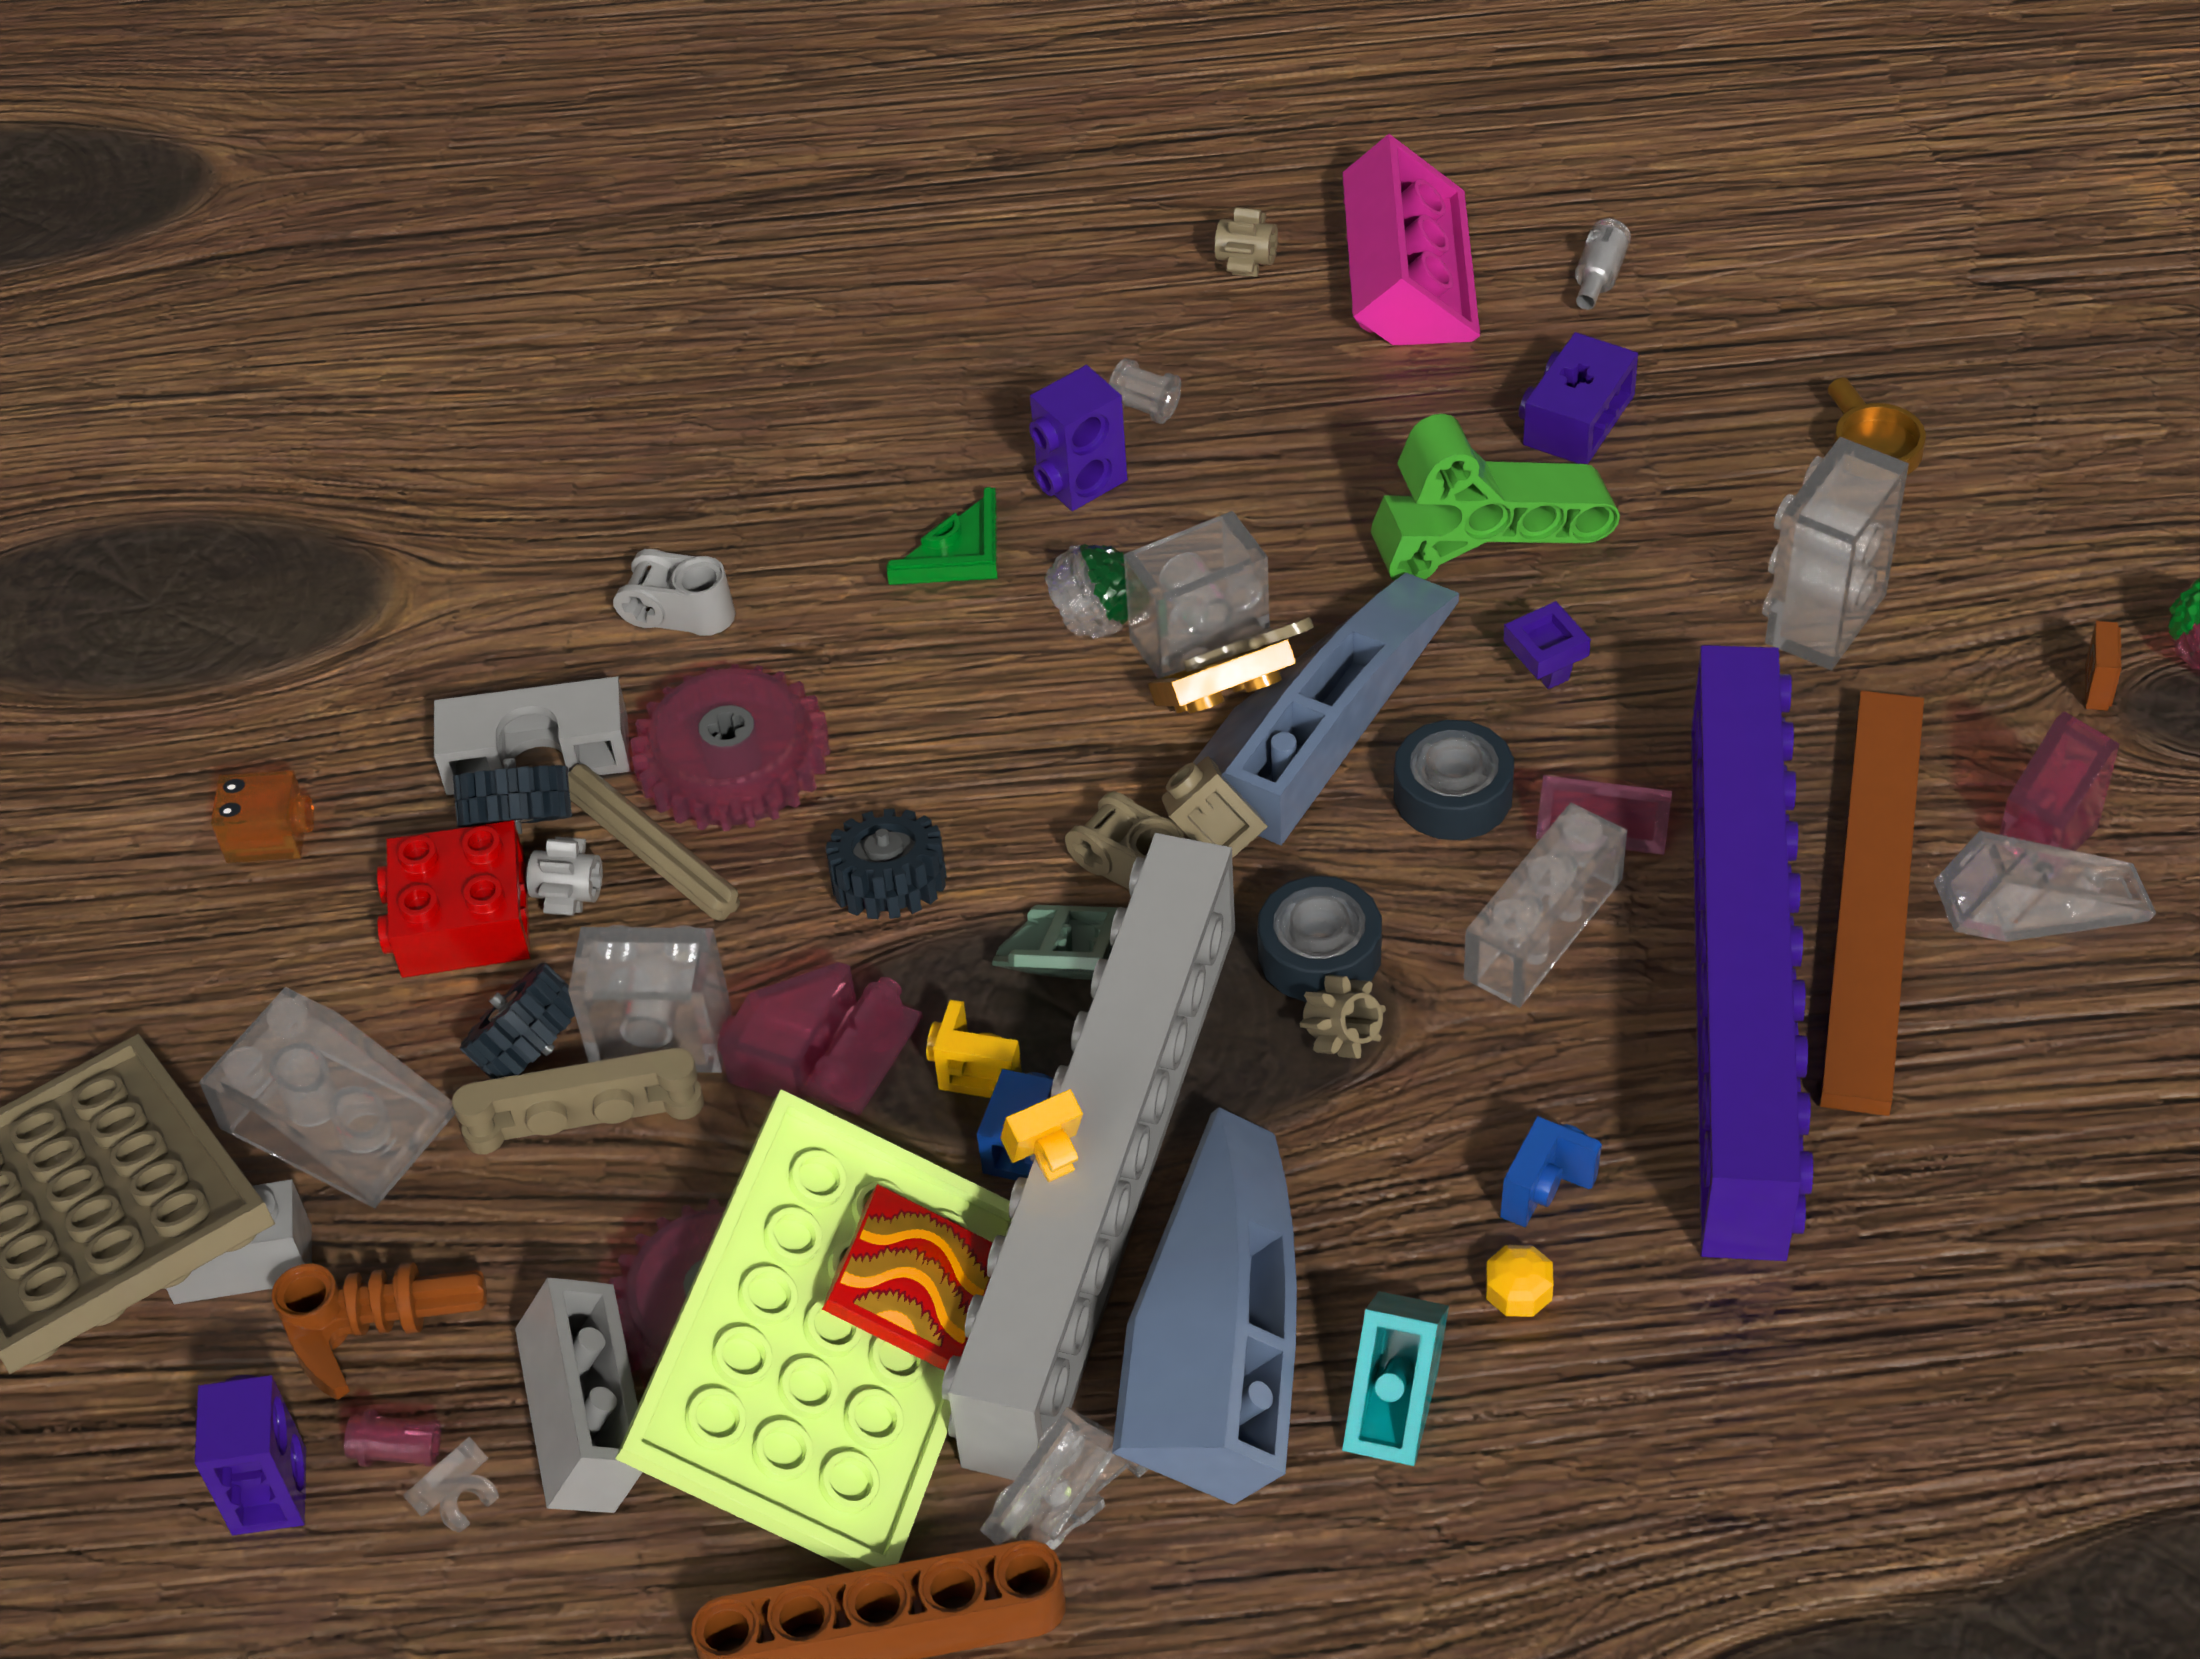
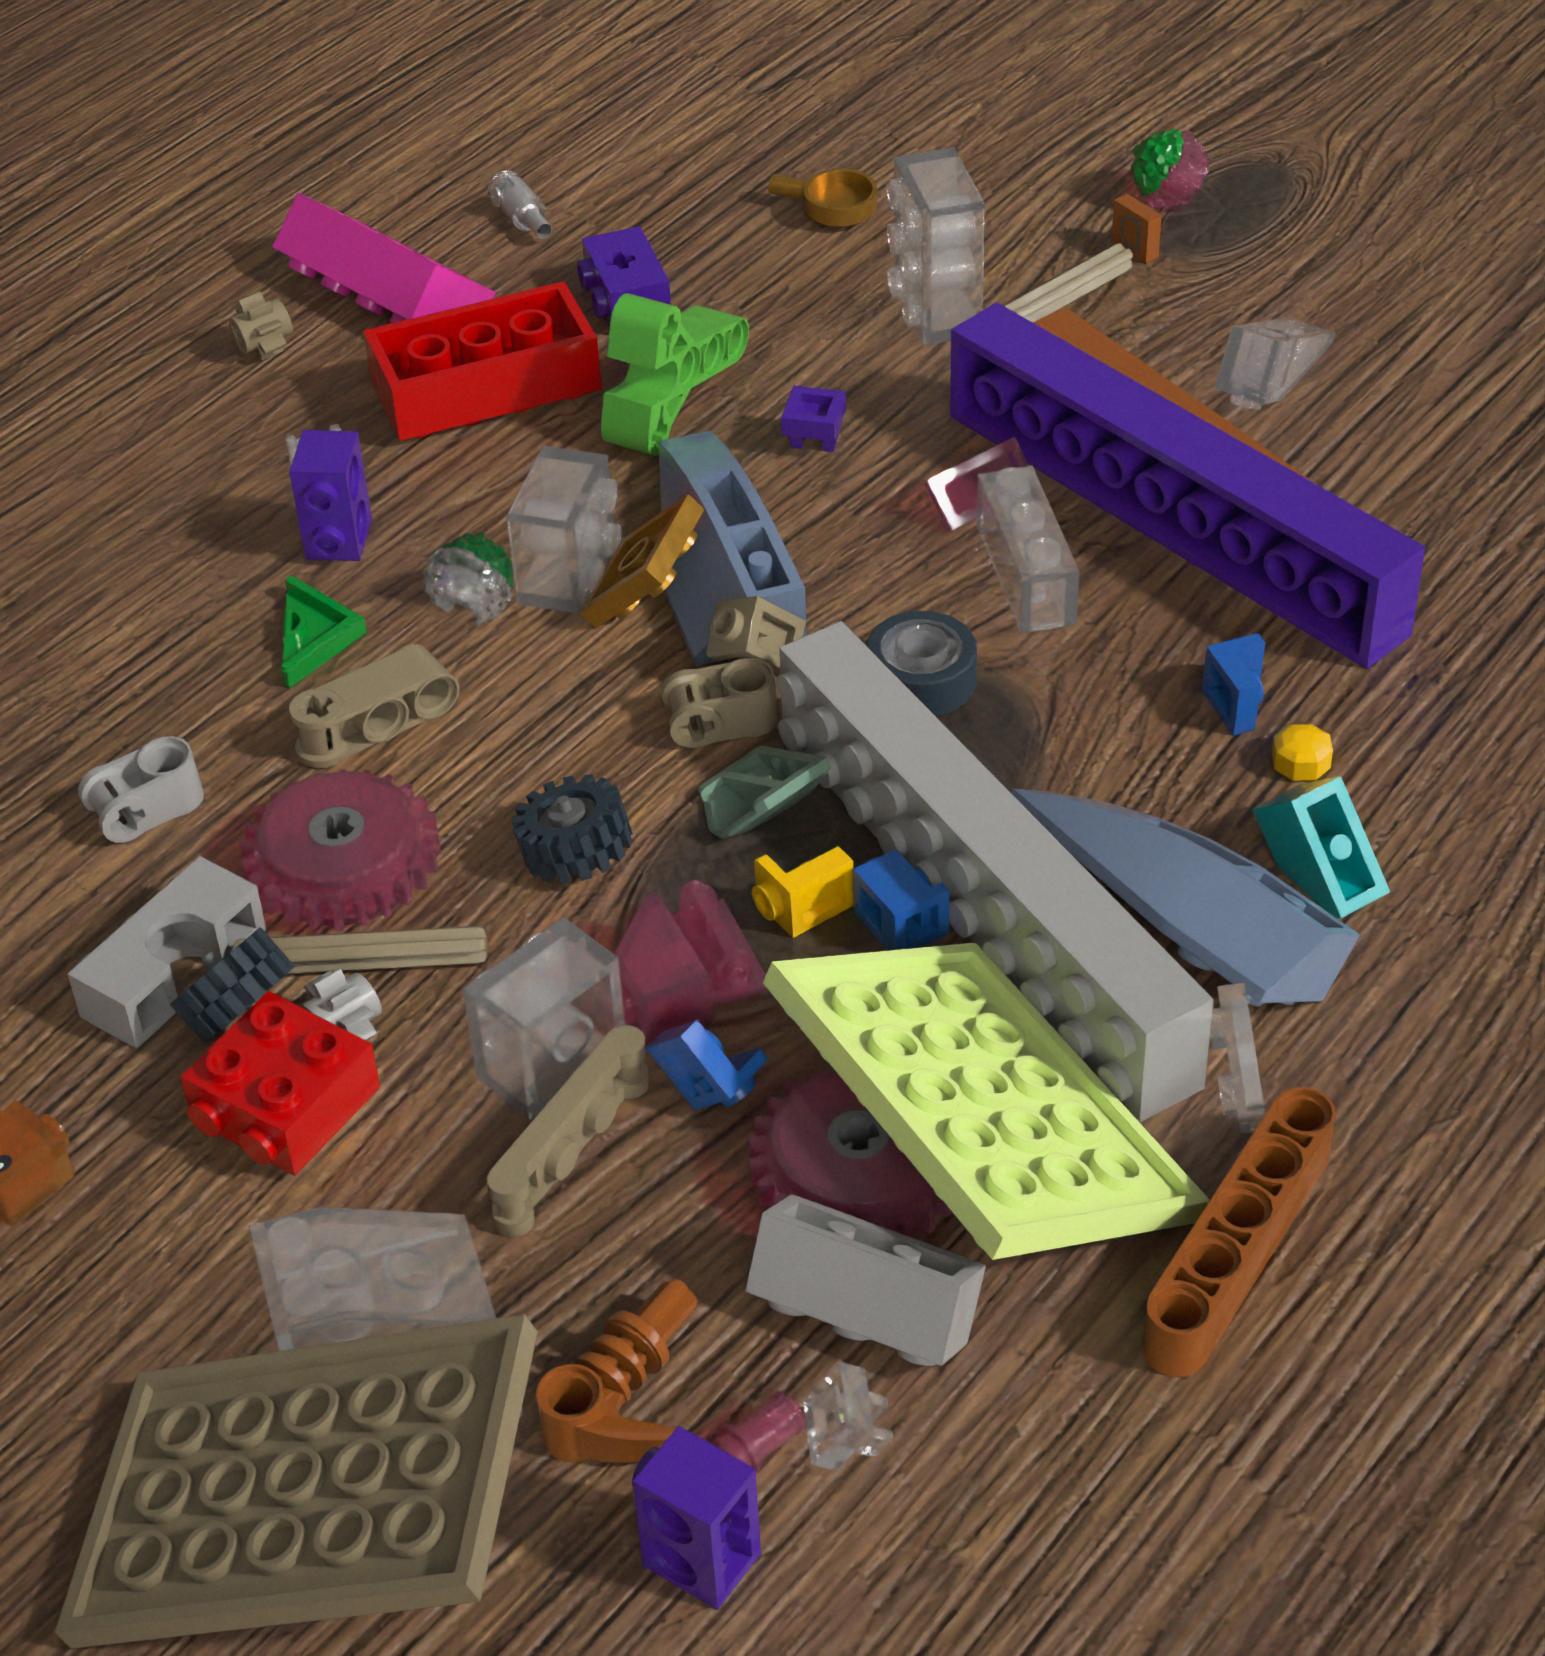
camera: 50 degrees left, 5 degrees down
(520, 1024) = (468, 1108): black wheel -> none
(707, 1123) = (701, 1070): none -> blue bracket
(900, 643) = (371, 705): none -> dark tan piece
(910, 1277) = (997, 1014): slope -> none
(1045, 1132) = (1000, 840): yellow tile -> none
(1249, 642) = (645, 522): dark tan piece -> none
(1342, 1016) = (1002, 691): dark tan gear -> none
(1345, 388) = (482, 360): none -> red brick
(1453, 779) = (863, 528): black wheel -> none
(1939, 678) = (1073, 283): none -> axle
(2062, 786) = (1221, 288): clear pink slope -> none

